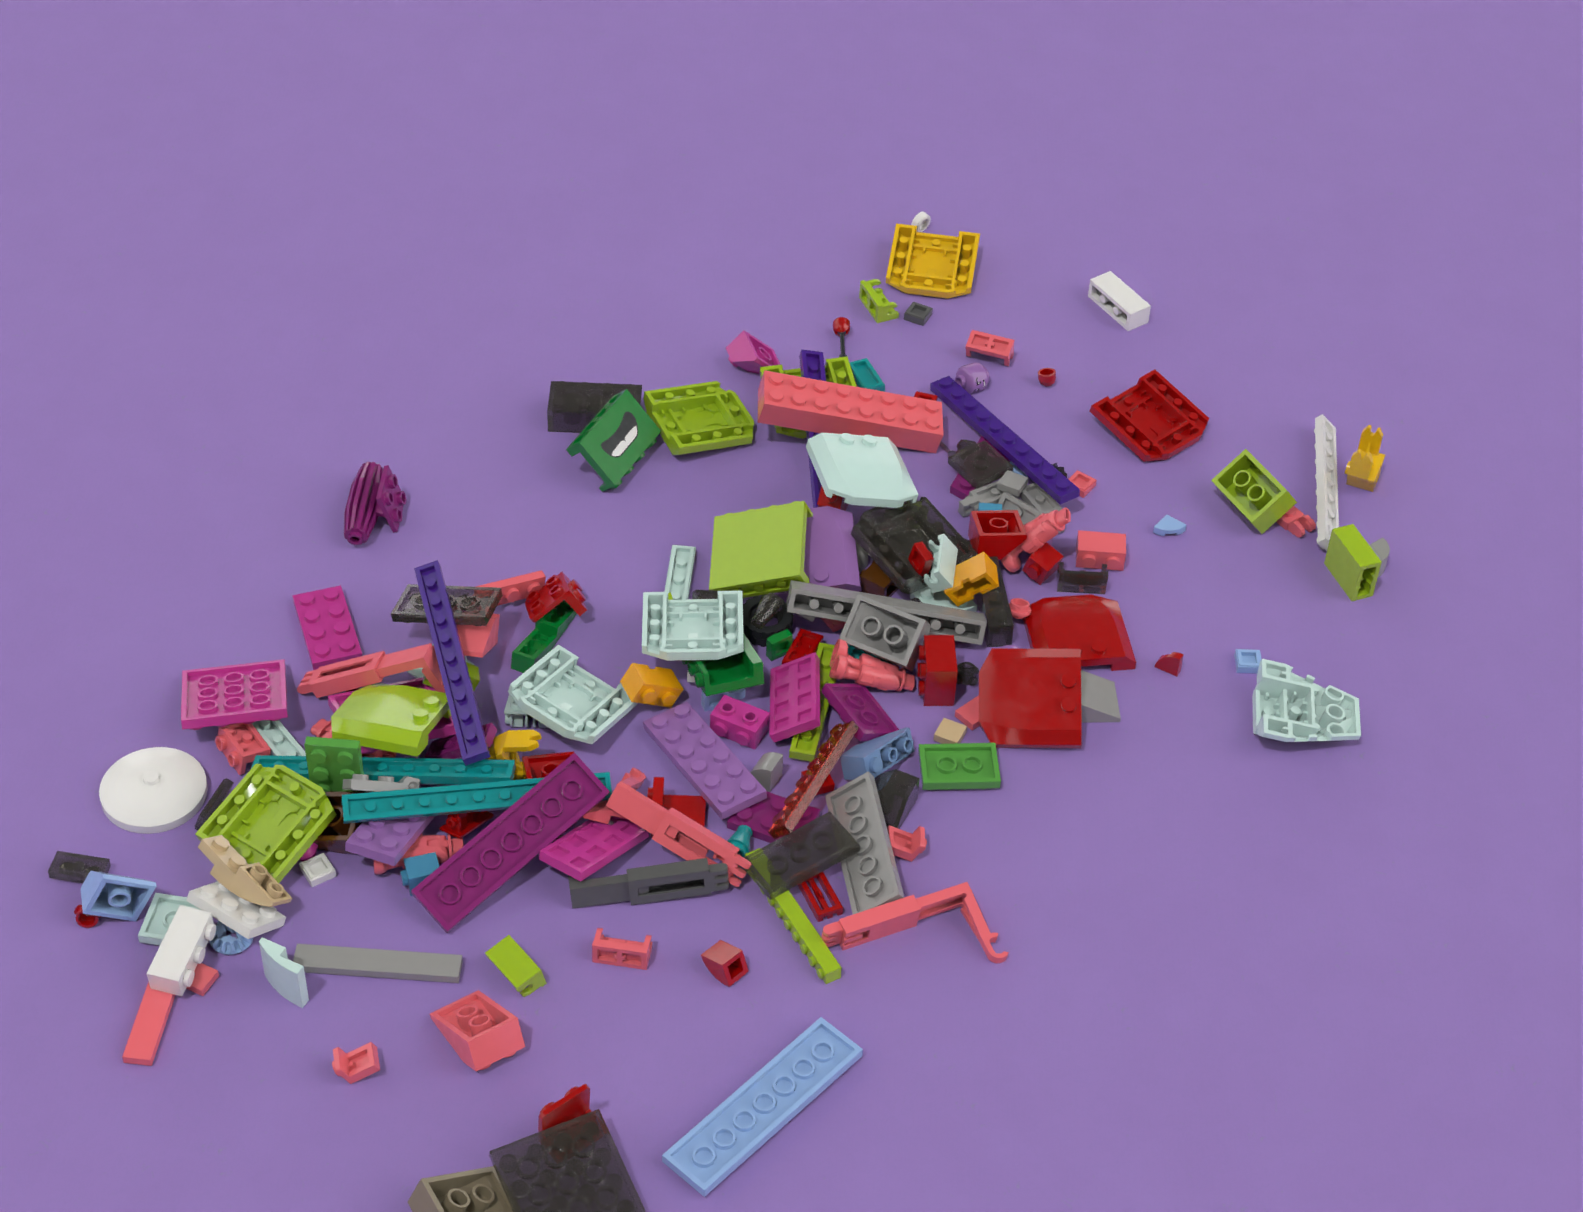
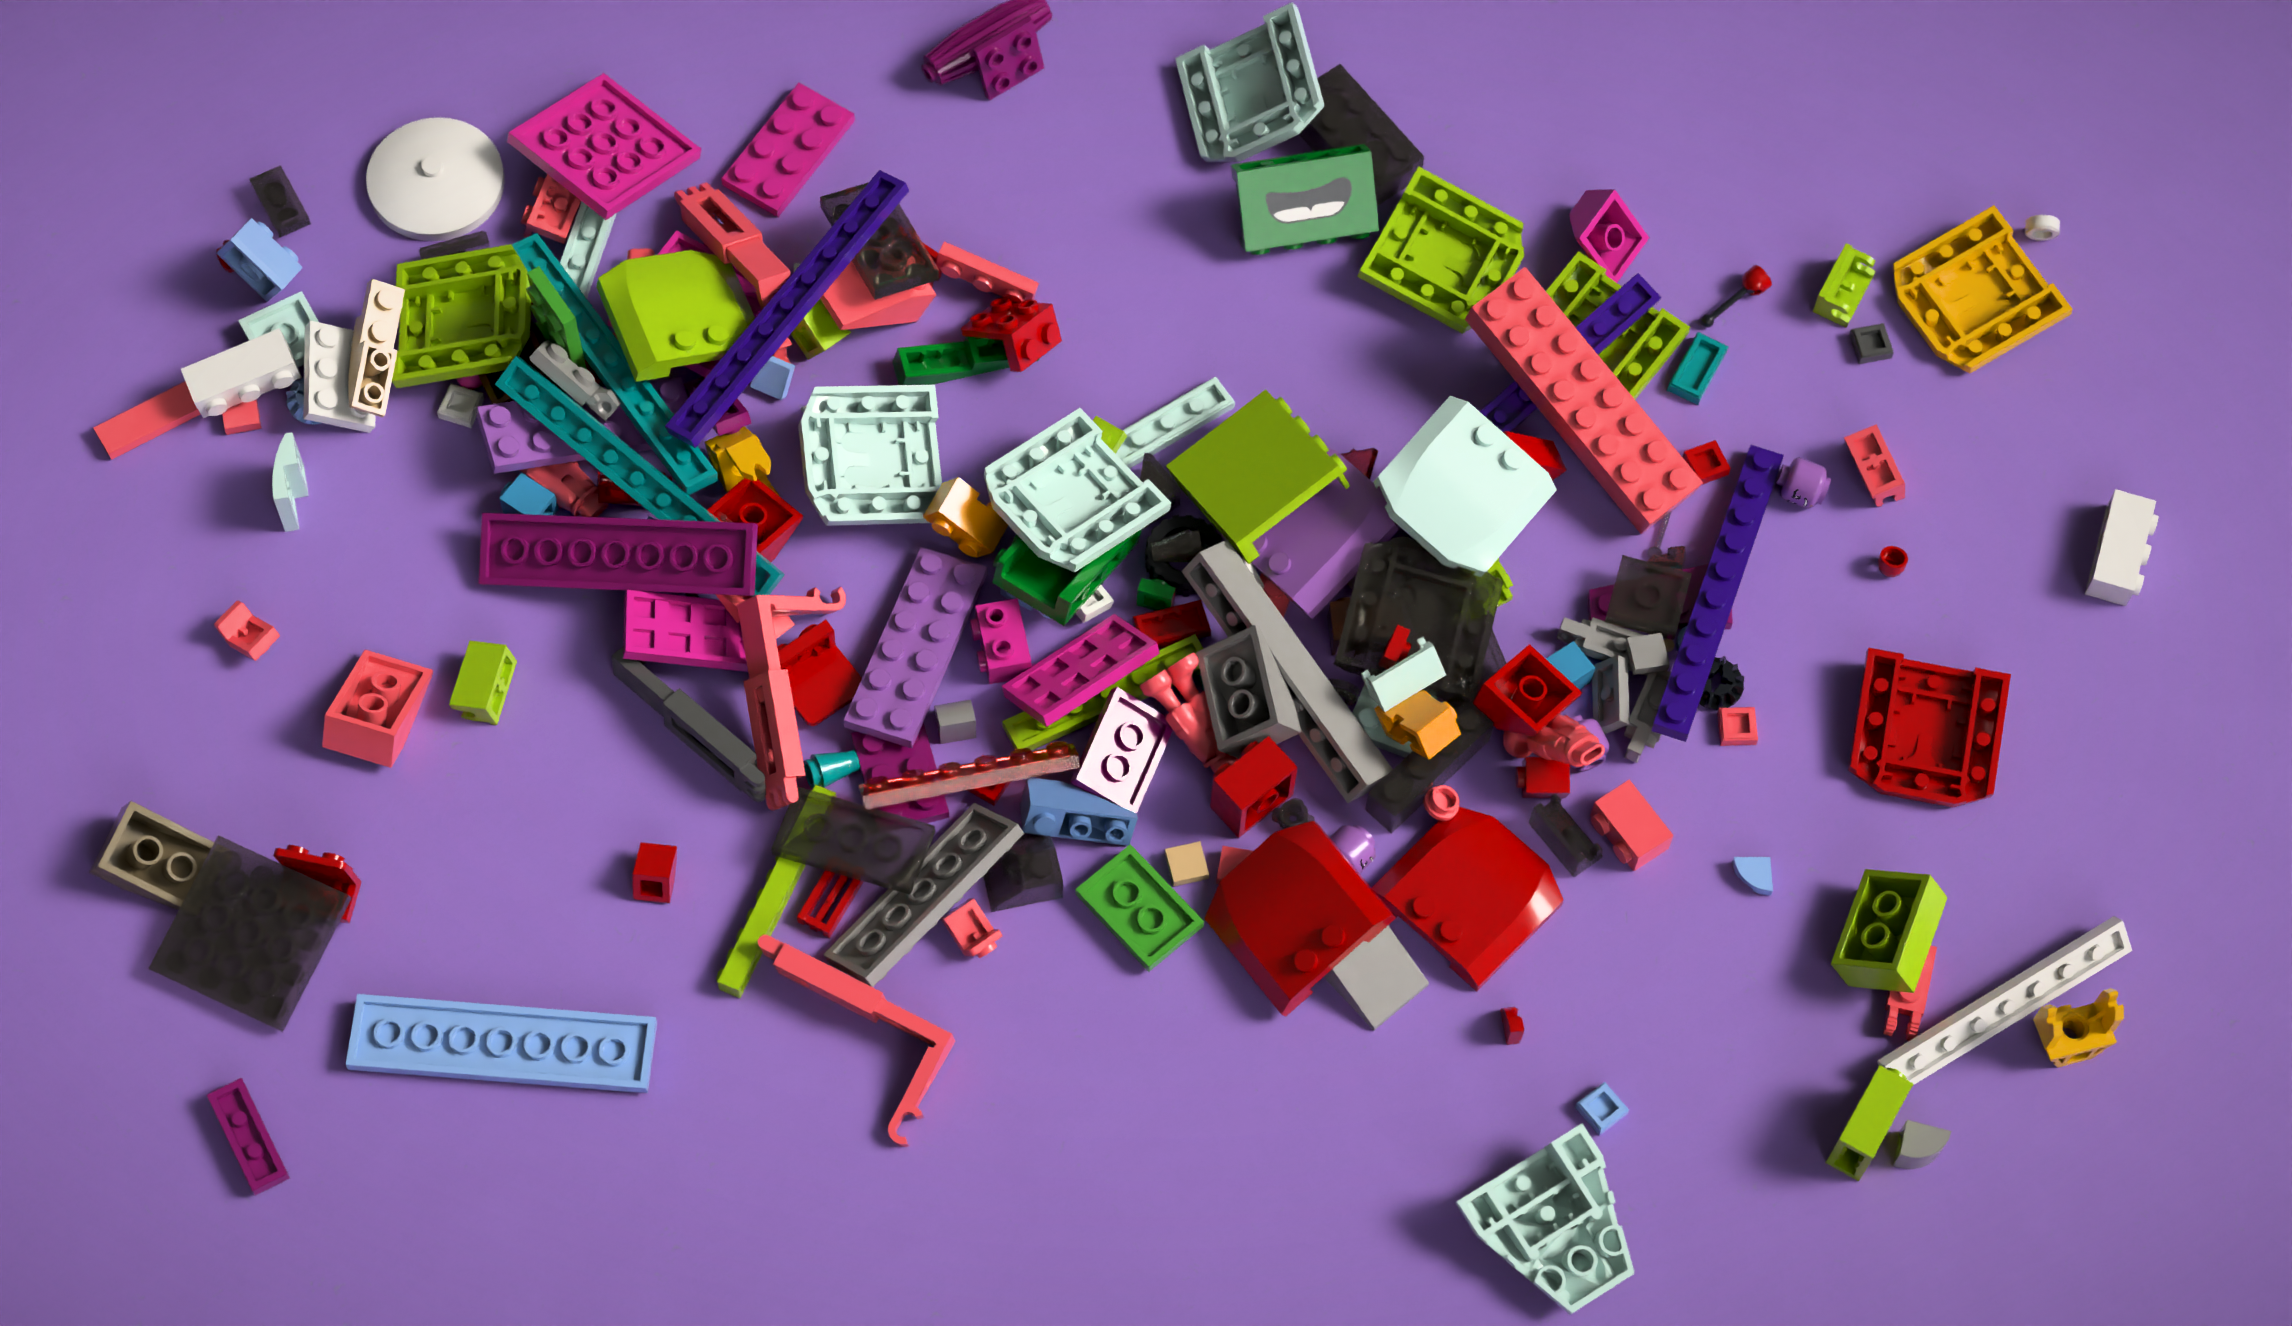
camera: 50 degrees right, 20 degrees up
(379, 963) = (389, 554): light grey tile -> none
(525, 420) = (1251, 89): none -> light aqua wedge
(621, 951) = (592, 760): coral hinge -> none

